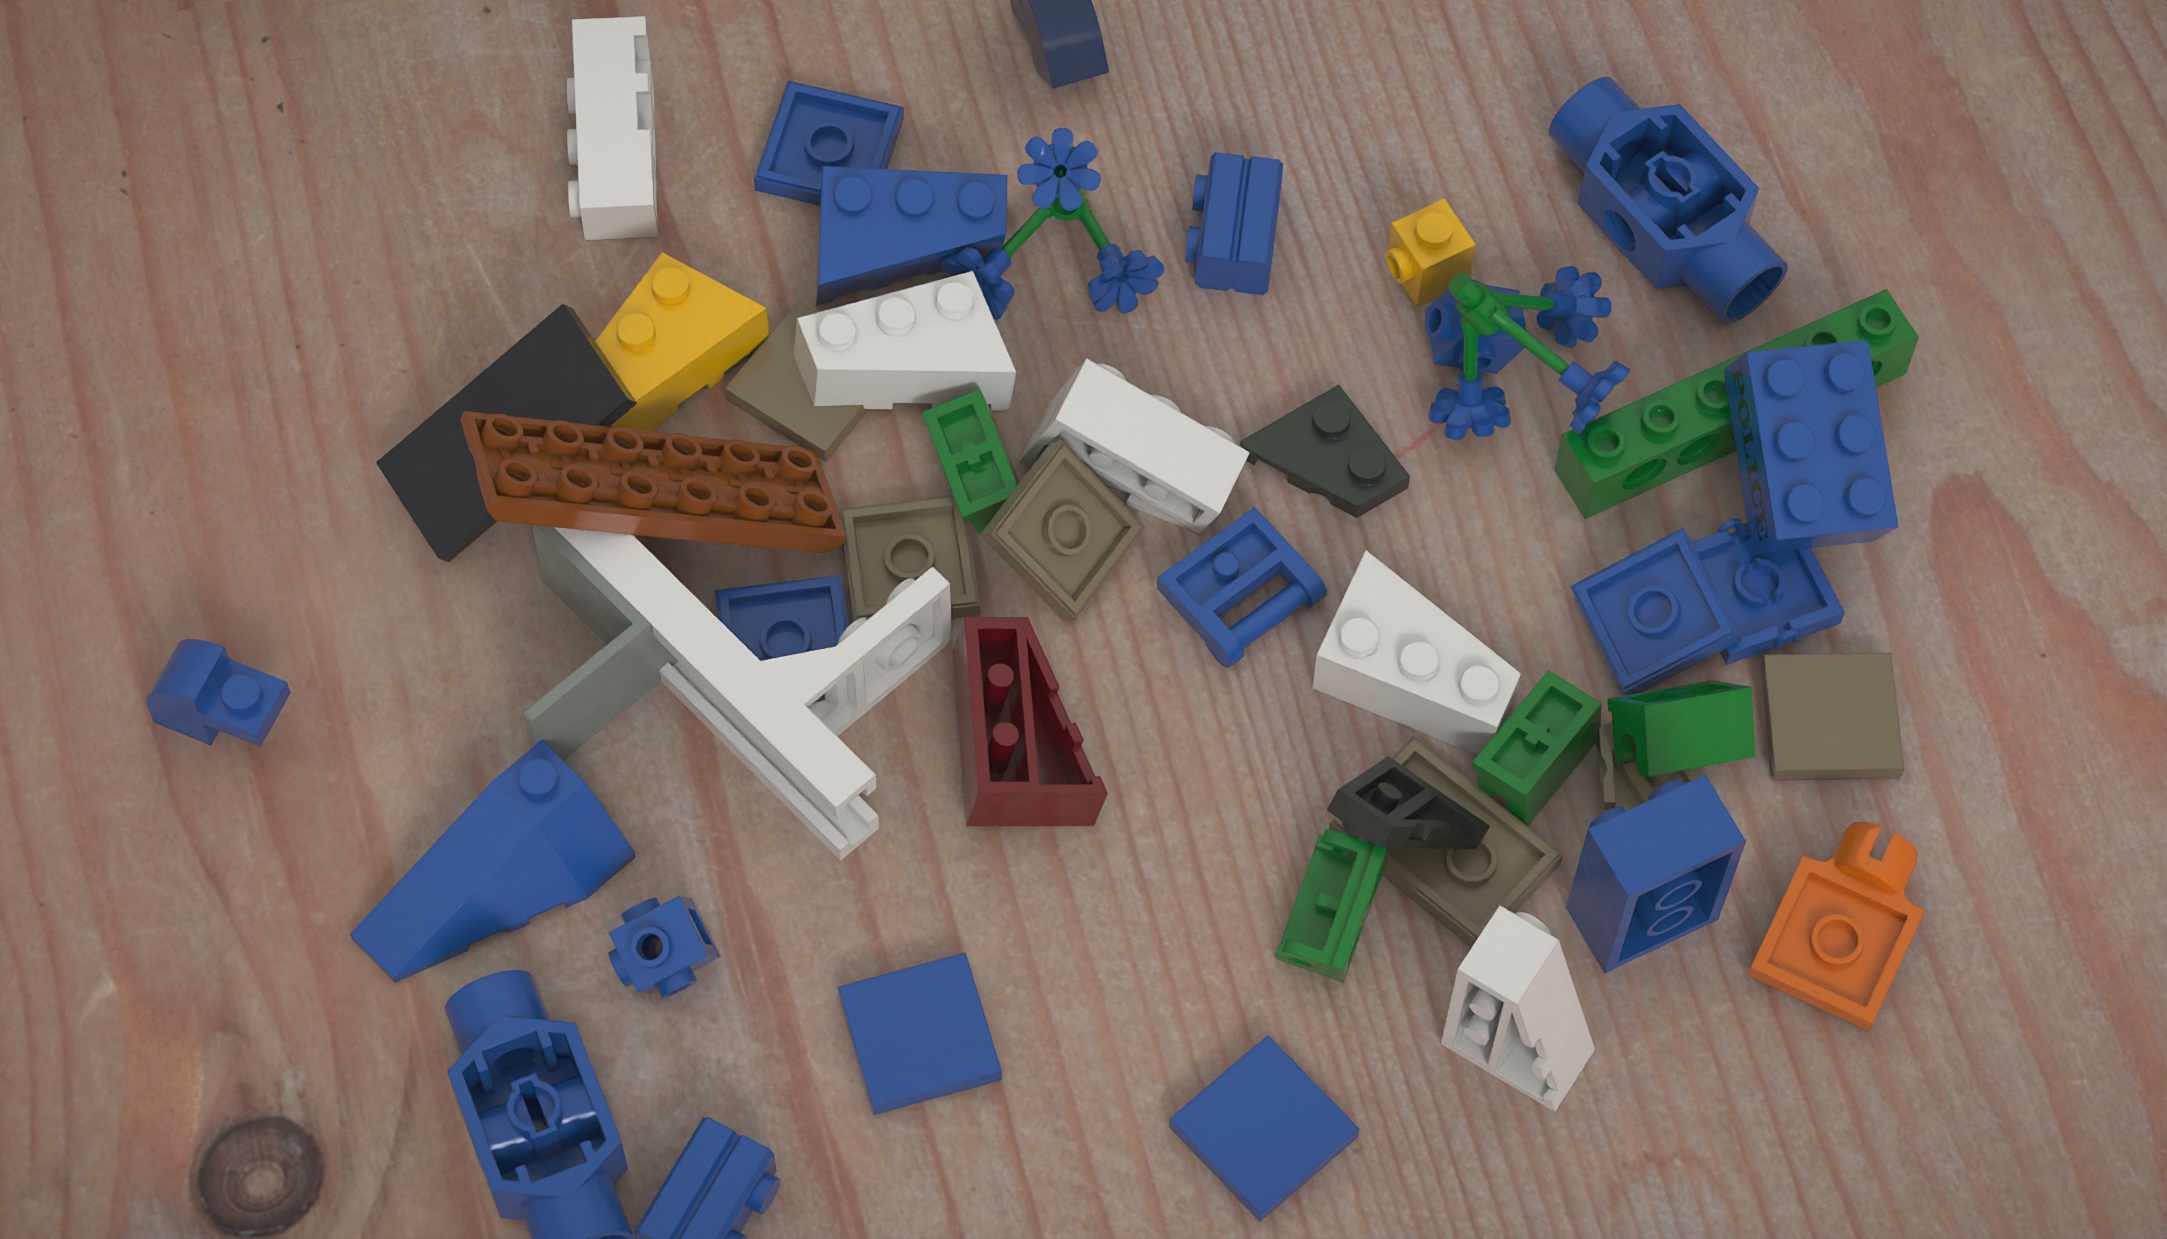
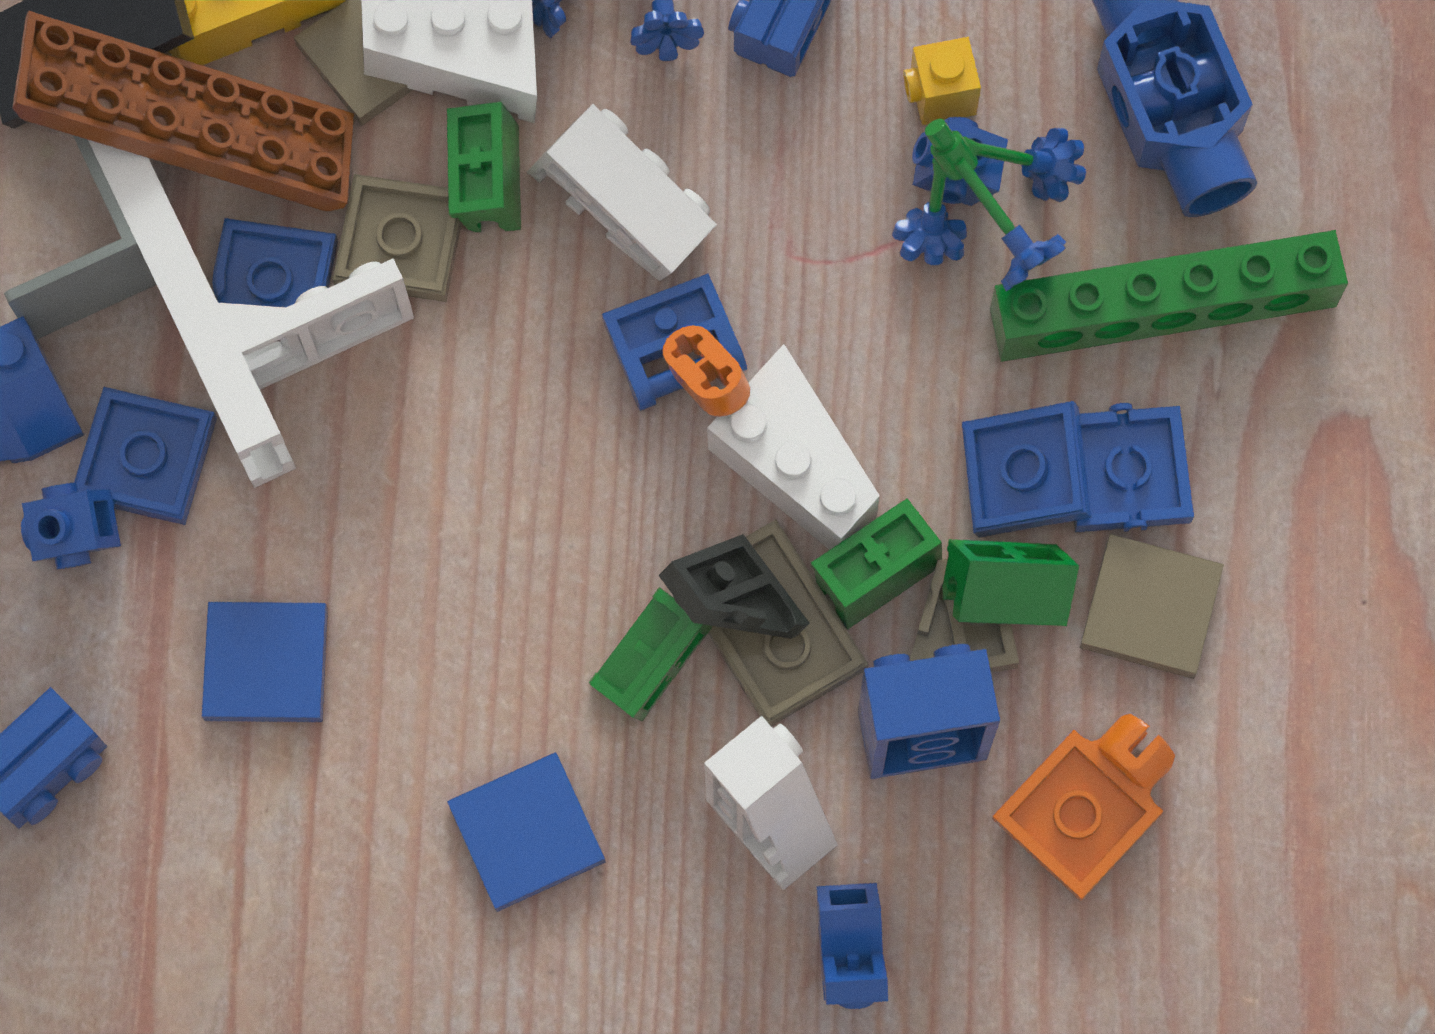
camera: 20 degrees right, 10 degrees up
(714, 852) = (146, 454): none -> blue tile
(1014, 734) = (429, 422): dark red wedge -> none
(1062, 530) = (532, 249): dark tan tile -> none
(1288, 608) = (715, 364): none -> orange beam
(1332, 453) = (796, 240): pearl dark grey wing -> none
(1652, 1139) = (851, 945): none -> blue brick
(1810, 447) = (1208, 361): blue brick -> none

